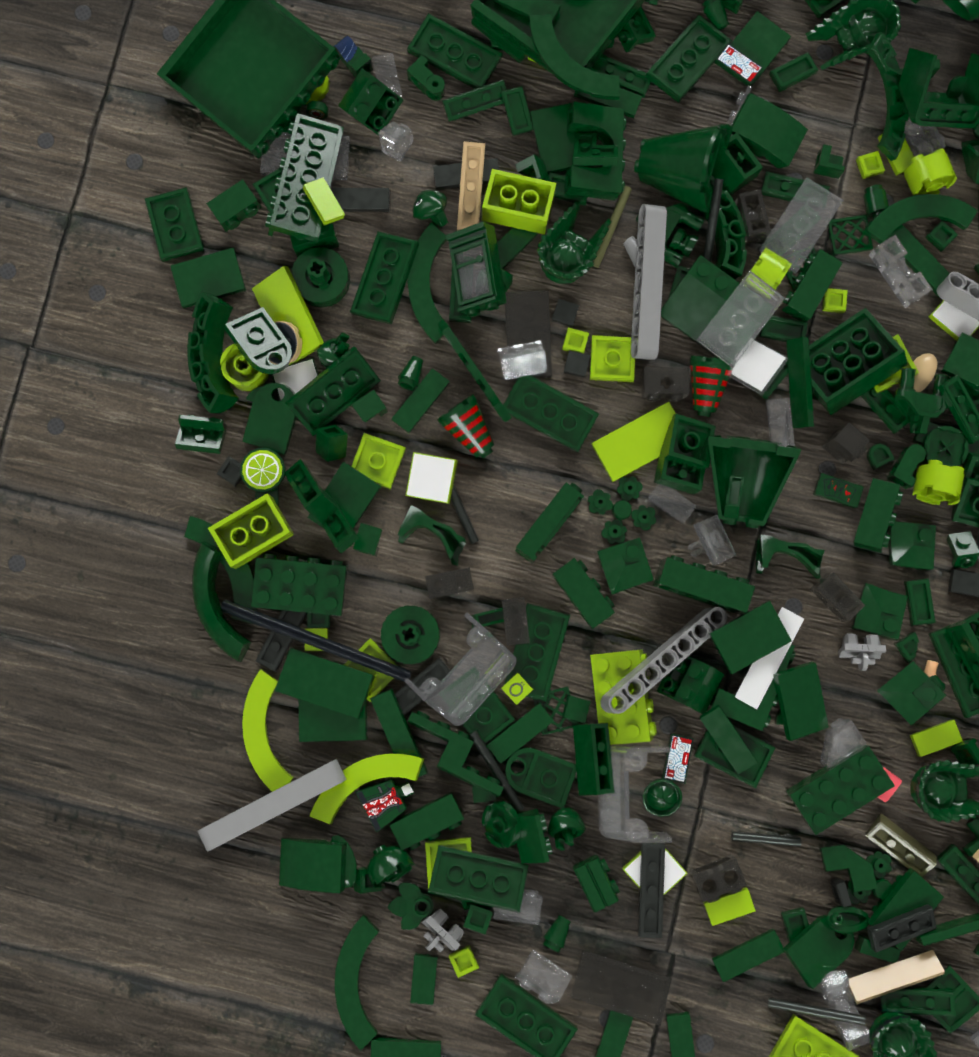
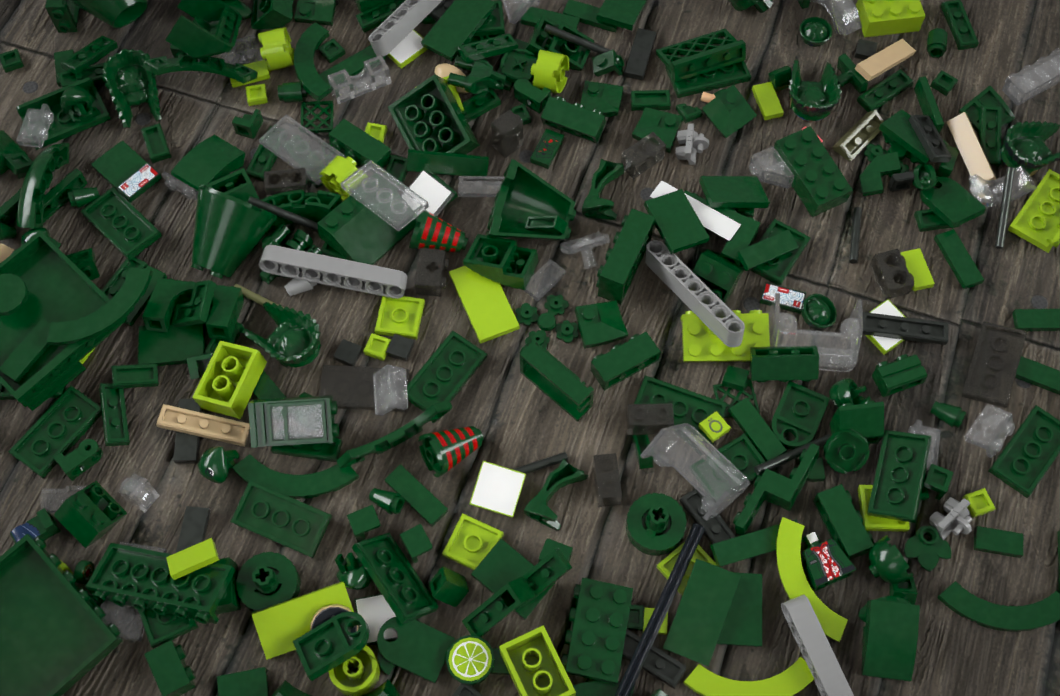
camera: 85 degrees left, 20 degrees down
(385, 354) = (363, 521): none -> dark green panel

